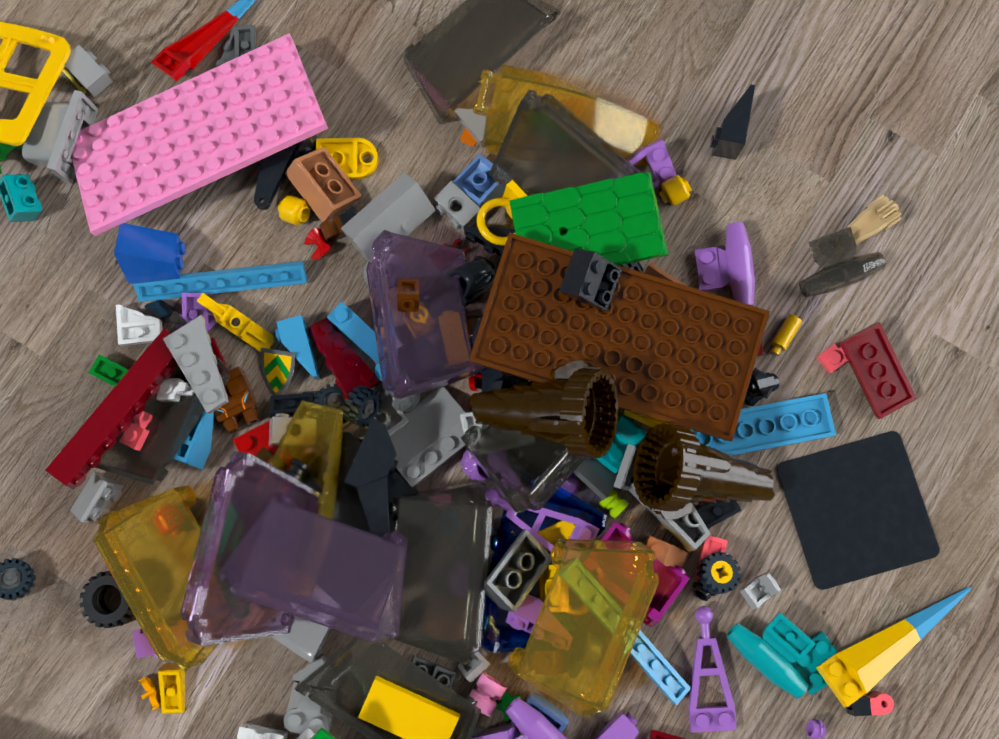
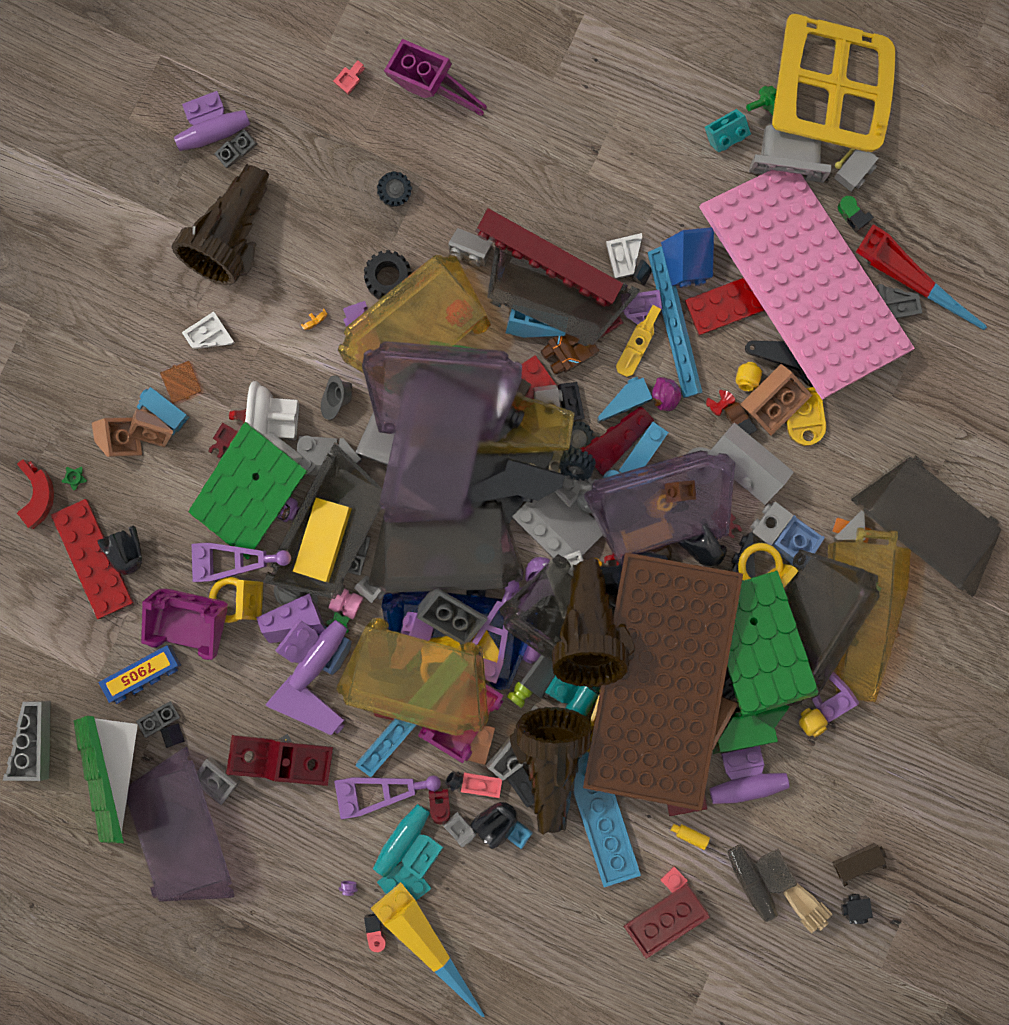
camera: 80 degrees right, 5 degrees up
(107, 370) = (580, 239): green plate -> none
(136, 81) = (852, 213): none -> leg
(137, 433) = (529, 274): coral plate -> none
(172, 389) = (572, 298): white plate -> none
(172, 688) = (320, 337): yellow slope -> none
(195, 357) = (600, 315): light grey wing -> none
(212, 225) = (723, 306): none -> red plate
(243, 677) = (336, 395): none -> dark grey piece
(277, 369) = (601, 383): sticker -> none
(299, 299) = (666, 394): none -> magenta hair
(590, 279) = (708, 649): black slope -> none
(626, 469) = (544, 700): light grey tile -> none
(683, 253) = (750, 730): none -> green slope
(711, 576) = (467, 784): black wheel -> none
(732, 133) = (873, 768): black slope -> none
(738, 610) = (439, 812): none -> dark red plate
(757, 548) = (495, 823): none -> black hair
(760, 386) = (640, 815): black rock -> none
(770, 522) = (520, 835): none -> dark azure tile
(828, 162) = (860, 862): none -> dark brown brick
(857, 510) = (540, 913): black piece -> none
(876, 170) = (857, 909): none -> black brick

